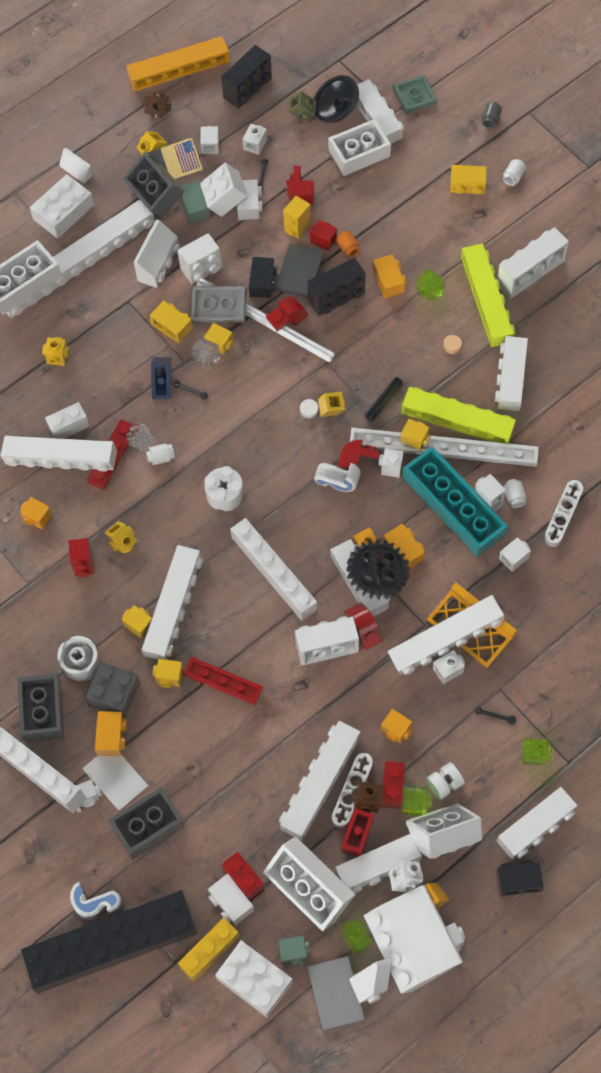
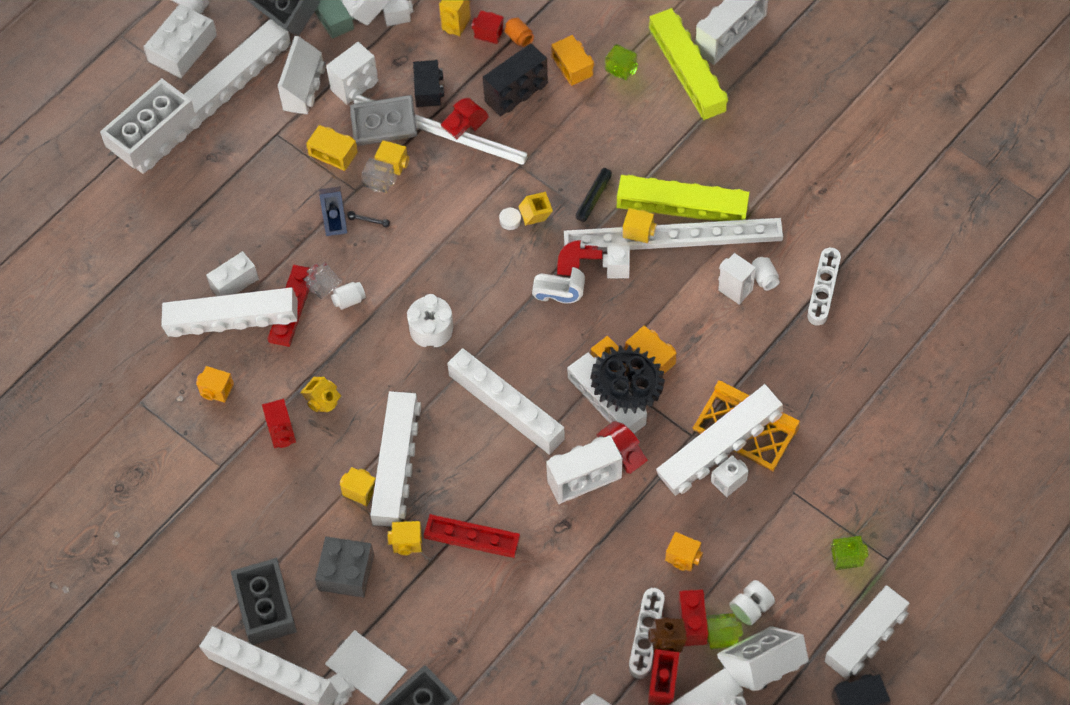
camera: 10 degrees left, 5 degrees down
(56, 351) = (204, 200): yellow brick -> none
(70, 662) = (295, 550): white brick -> none
(110, 733) = (350, 617): light orange brick -> none
(298, 267) = (465, 69): dark grey tile -> none
(319, 781) = (608, 627): white brick -> none
(452, 344) = (659, 123): light nougat tile -> none
(455, 501) = (698, 292): teal brick -> none
(511, 720) = (813, 523): black hinge -> none
(512, 373) = (734, 143): white brick -> none
(515, 554) = (779, 339): white brick -> none

